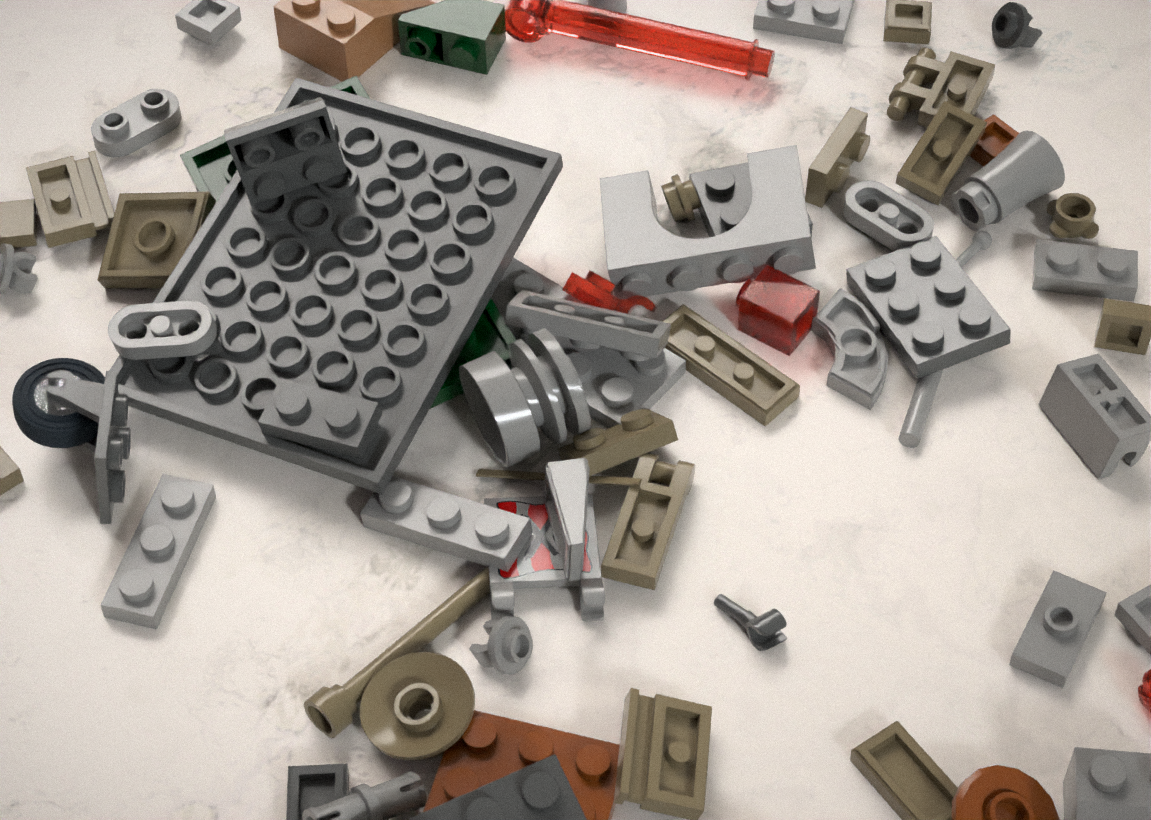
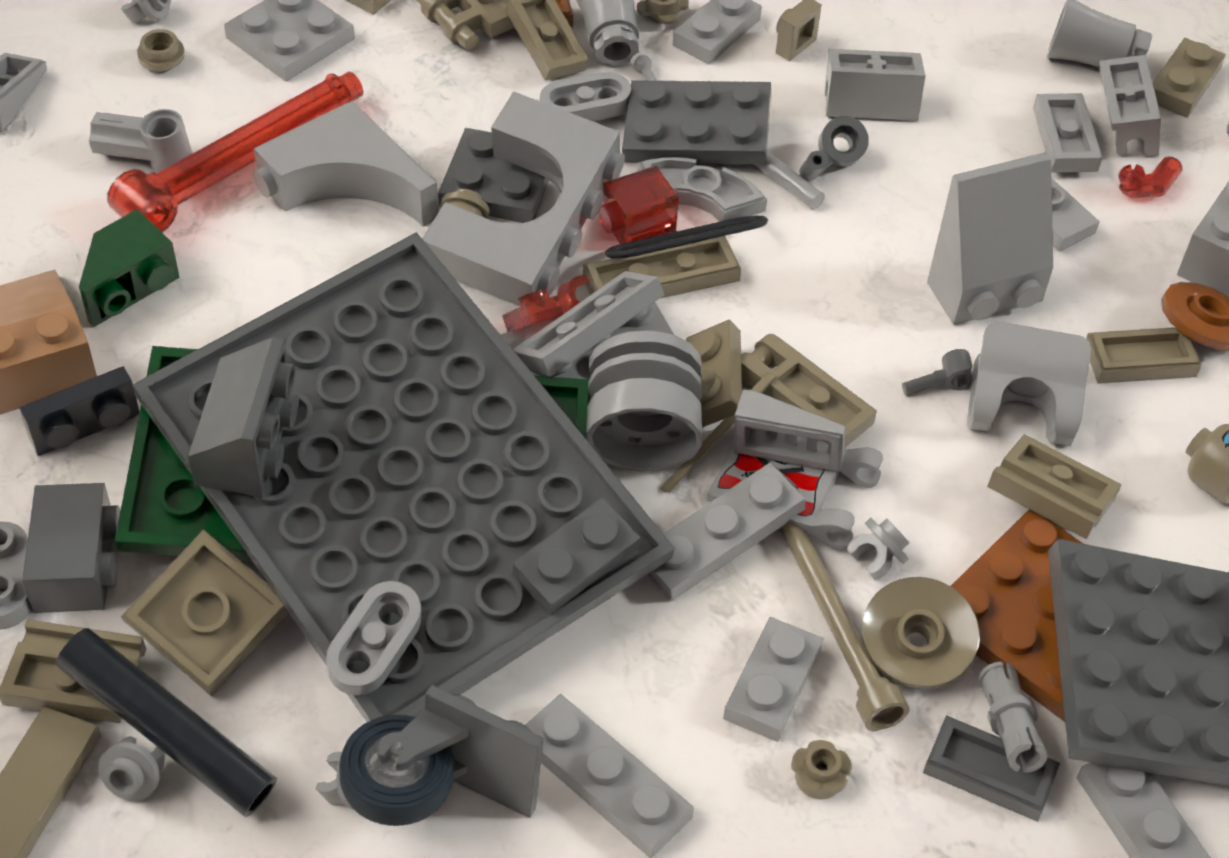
camera: 65 degrees left, 0 degrees up
(43, 263) = (166, 721): none -> black piece
(156, 138) = (70, 548): none -> dark grey brick
(246, 705) = (816, 782): none -> dark tan plate
(278, 70) = (80, 411): none -> black plate
(319, 625) = (773, 679): none -> light grey plate
(672, 93) = (343, 158): none -> light grey arch
(788, 665) = (1033, 368): none -> light grey piece
(832, 164) = (489, 82): dark tan plate -> none
(844, 401) = (748, 223): none -> black piece
(914, 574) = (995, 240): none -> light grey slope
(977, 419) = (845, 127): none -> dark grey plate

